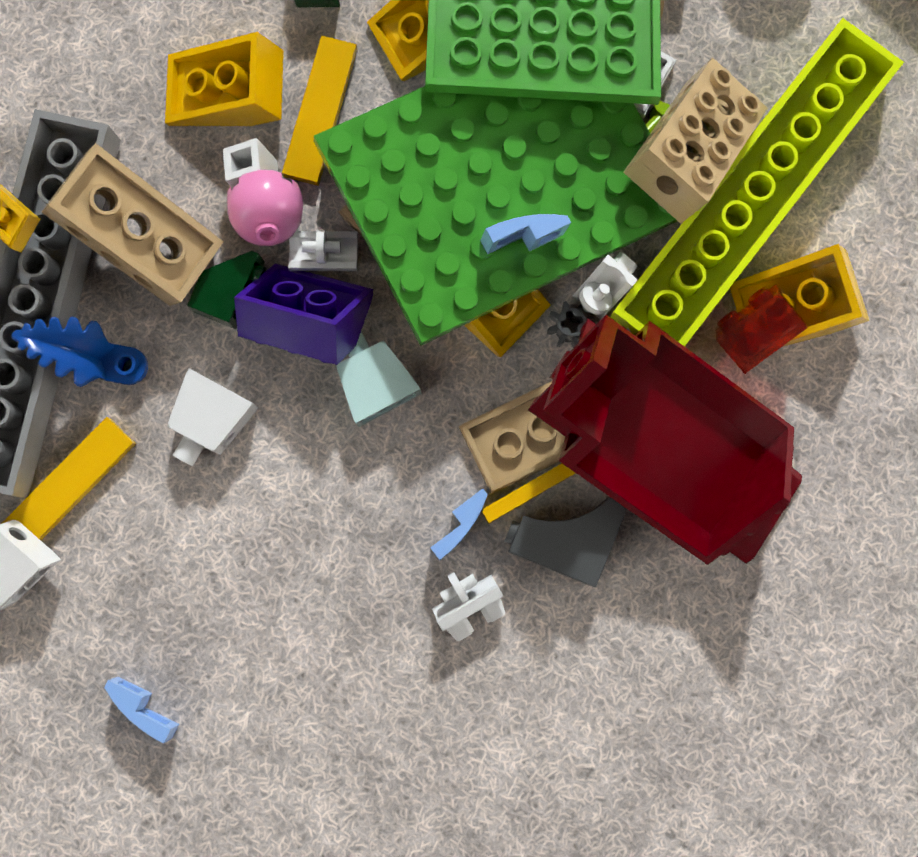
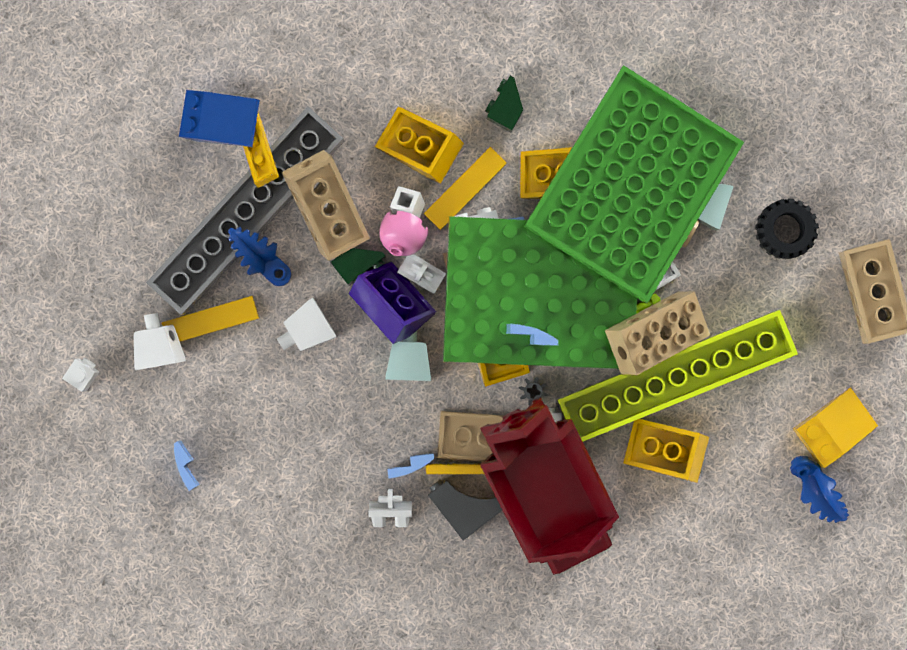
camera: 25 degrees right, 5 degrees up
(606, 285) = (563, 382): white hips -> none
(759, 328) = (632, 452): clear red bracket -> none

